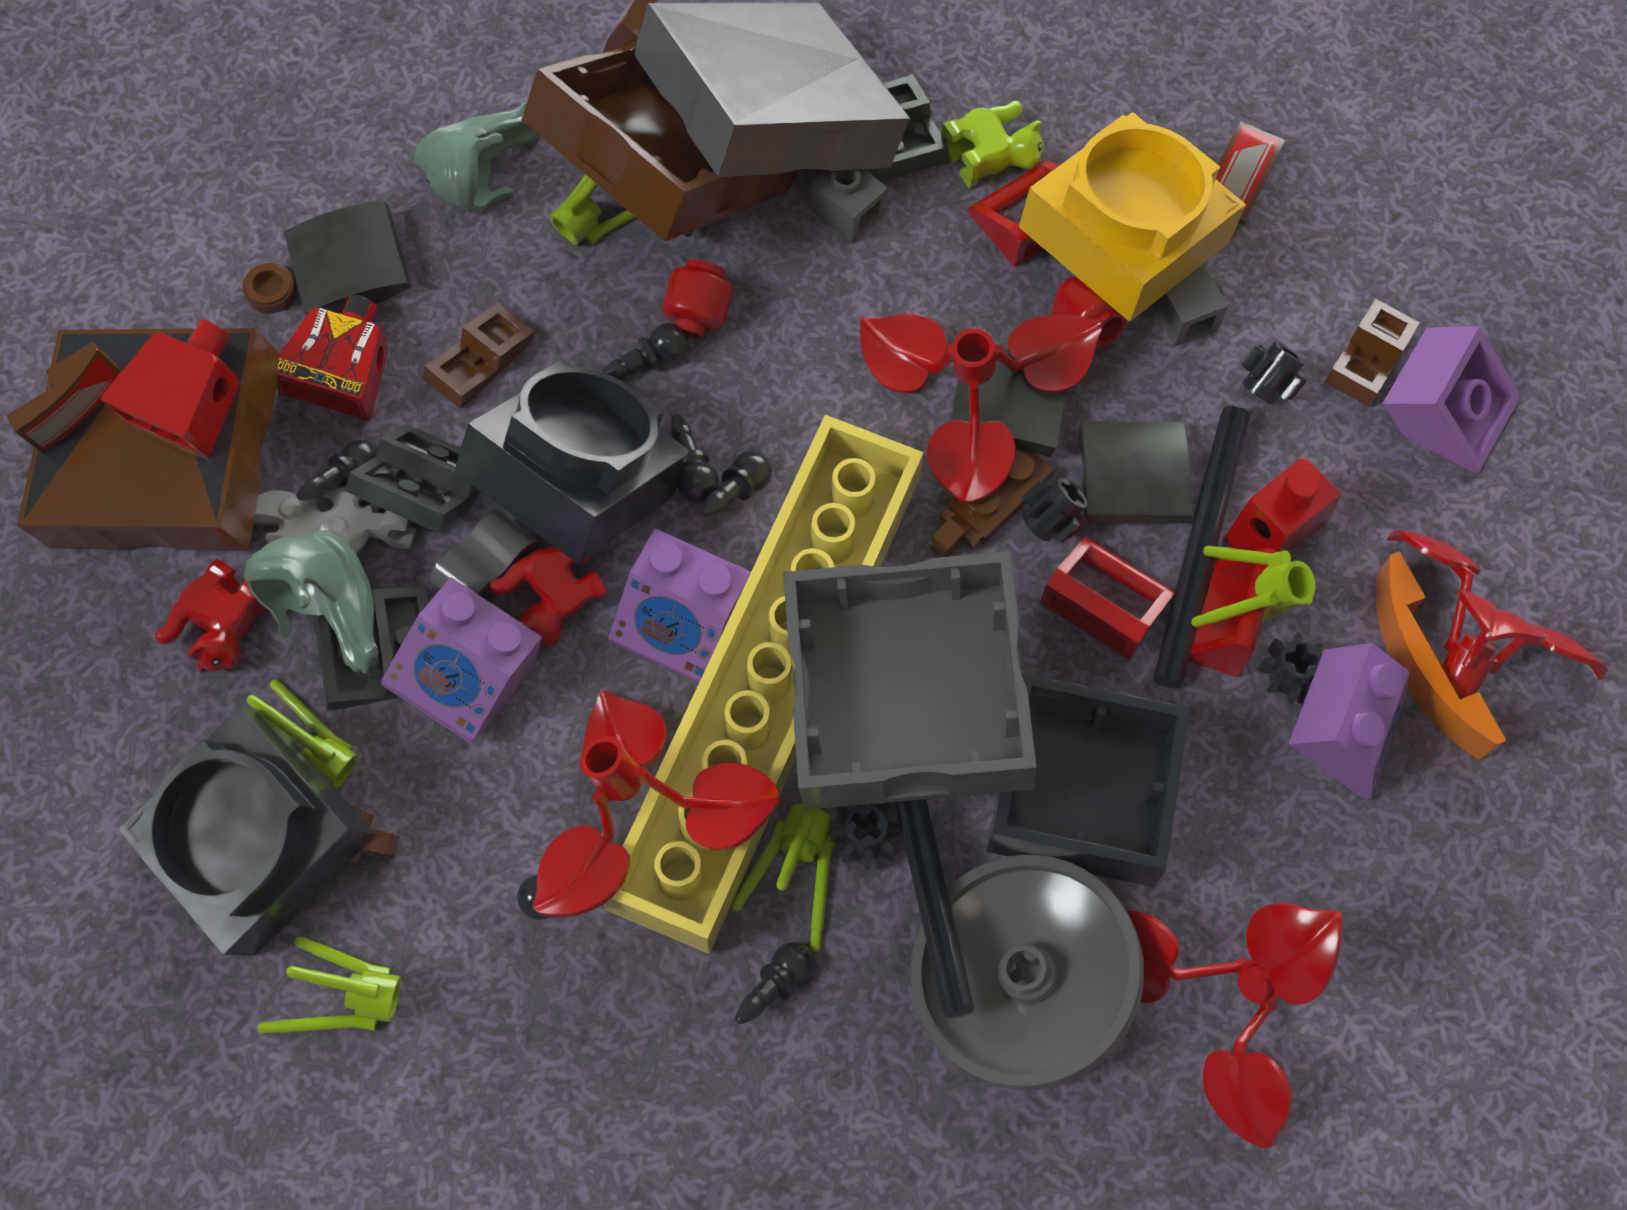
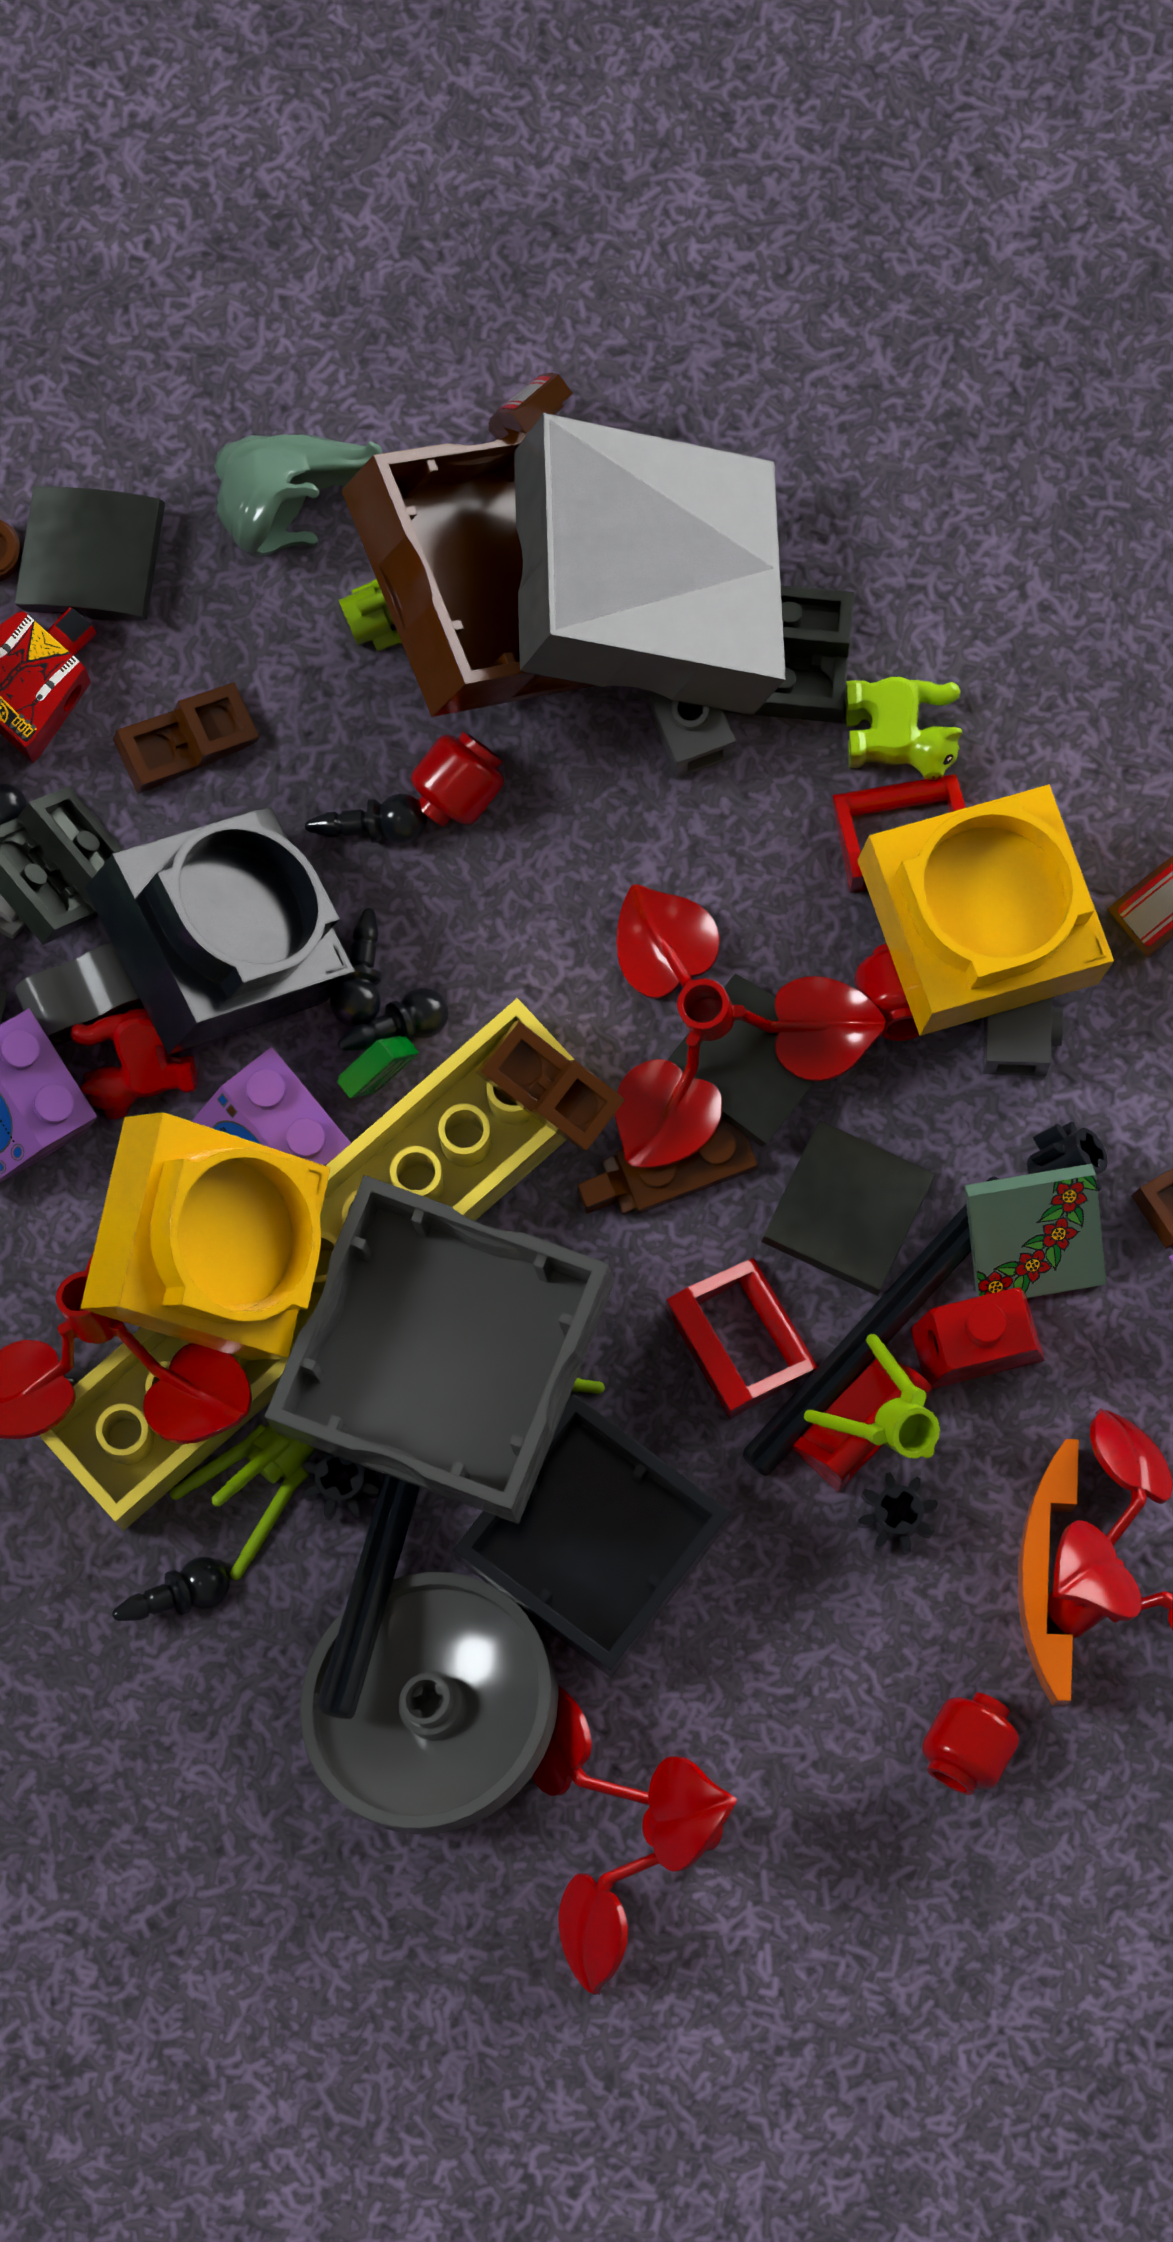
camera: 30 degrees right, 10 degrees up
(684, 669) = (207, 1237): none -> yellow container
(739, 515) = (377, 1066): none -> green tile
(884, 464) = (550, 1086): none -> reddish brown slope
(1055, 509) = (729, 1214): black gear -> none
(1282, 422) = (1037, 1232): none -> sand green tile
(1352, 714) = (920, 1599): medium lavender slope -> none
(1446, 810) = (970, 1743): none -> red head

